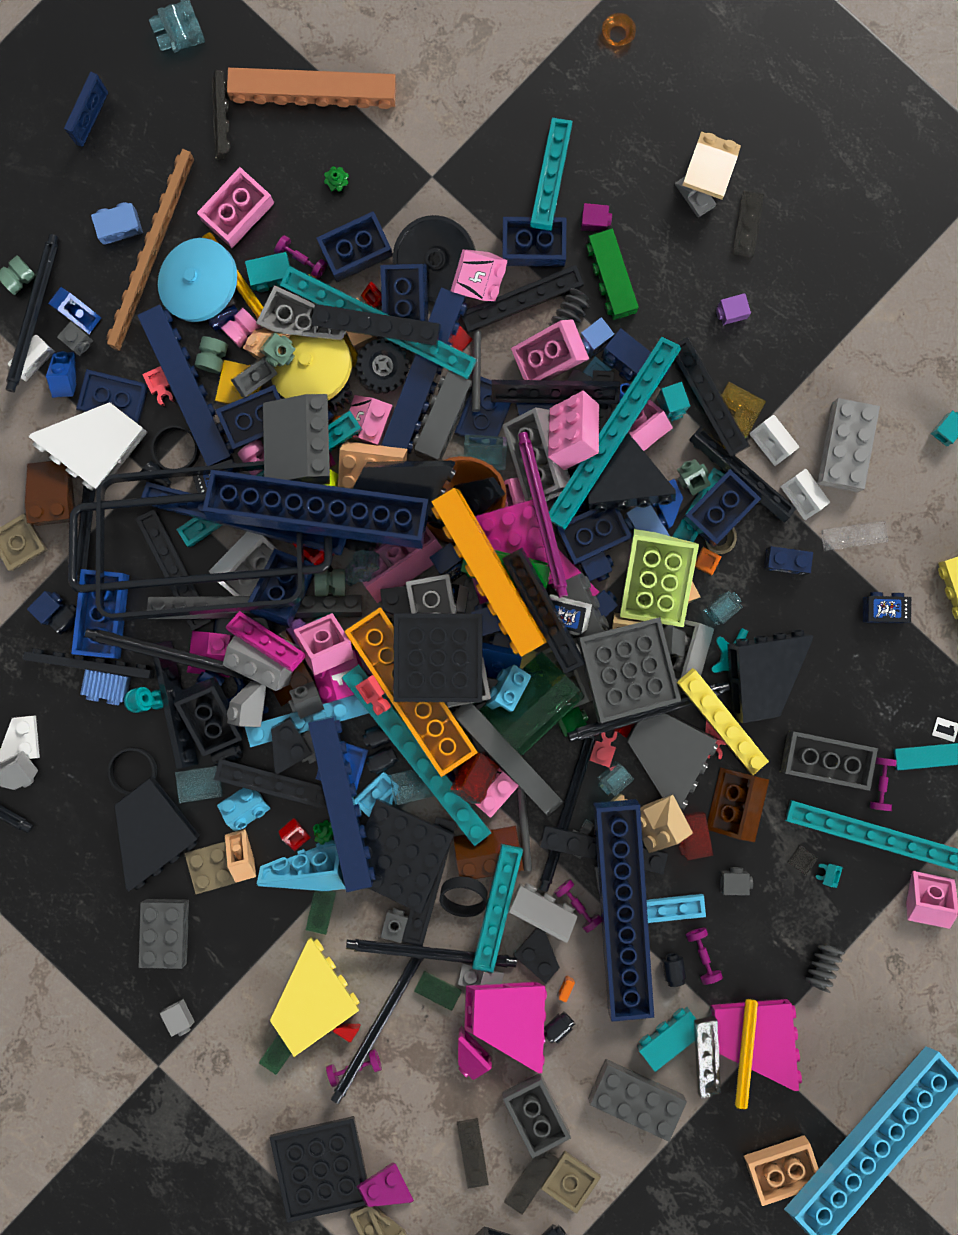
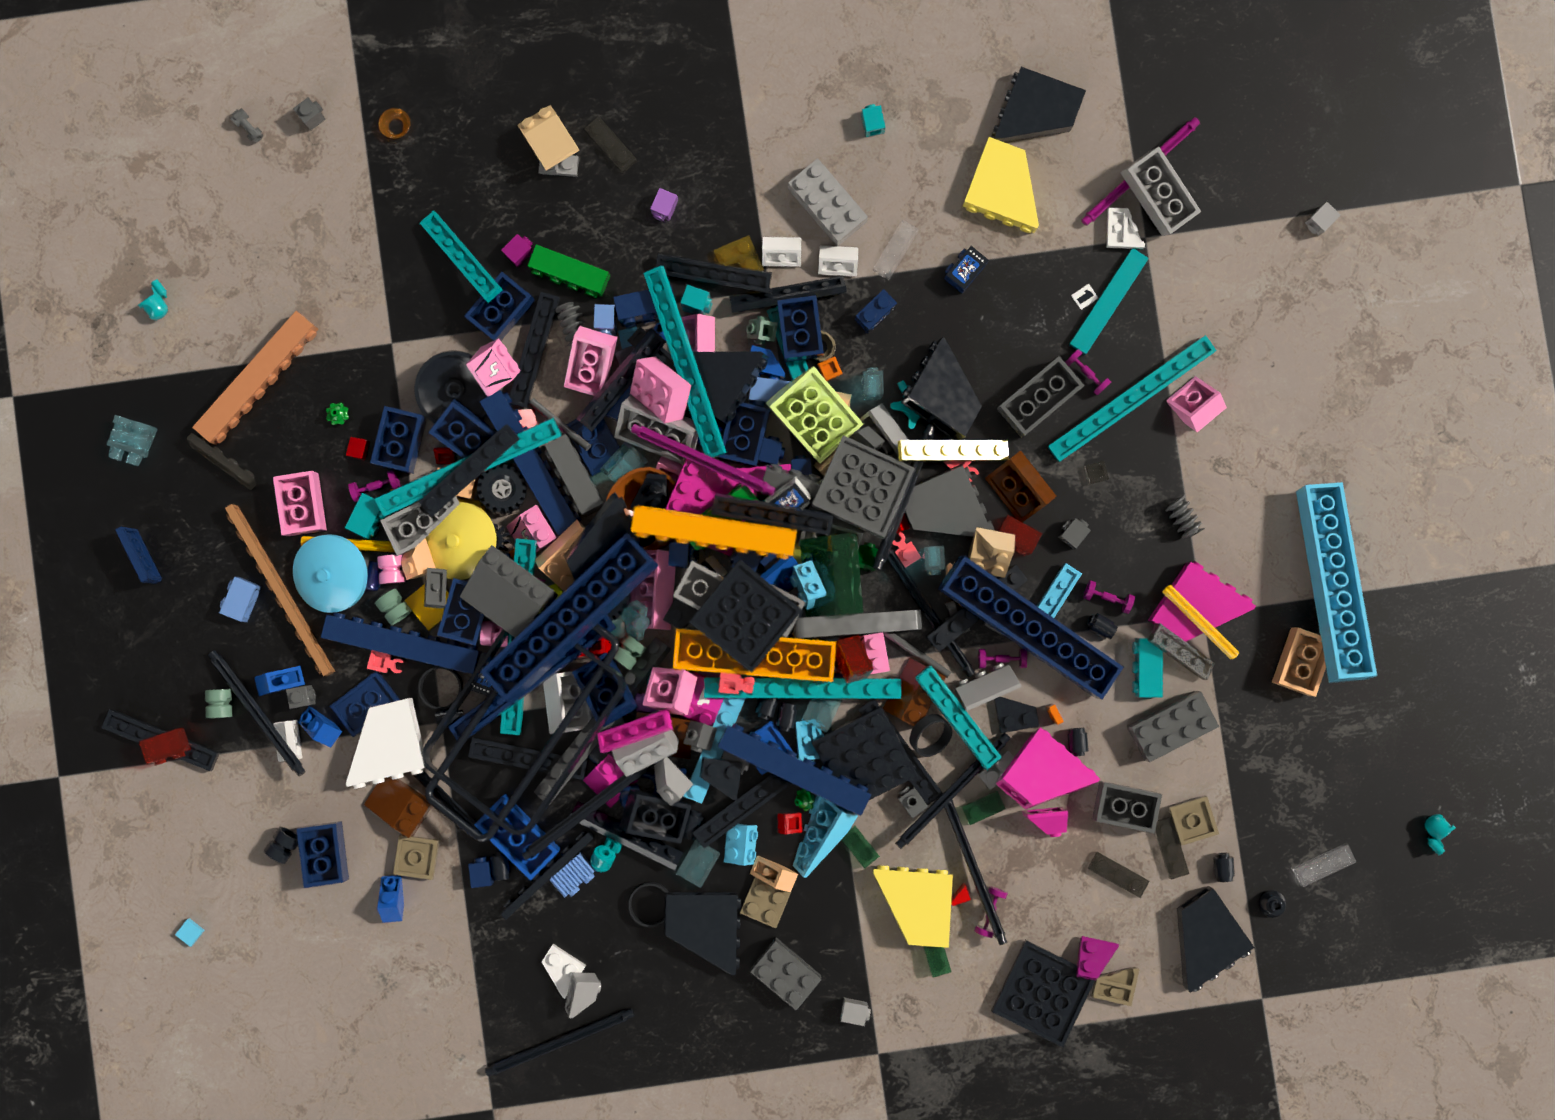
camera: 55 degrees left, 0 degrees up
(271, 348) = (424, 558): sand green brick -> none
(321, 219) = (357, 448): none -> red slope
(832, 874) = (1124, 461): teal tile -> none

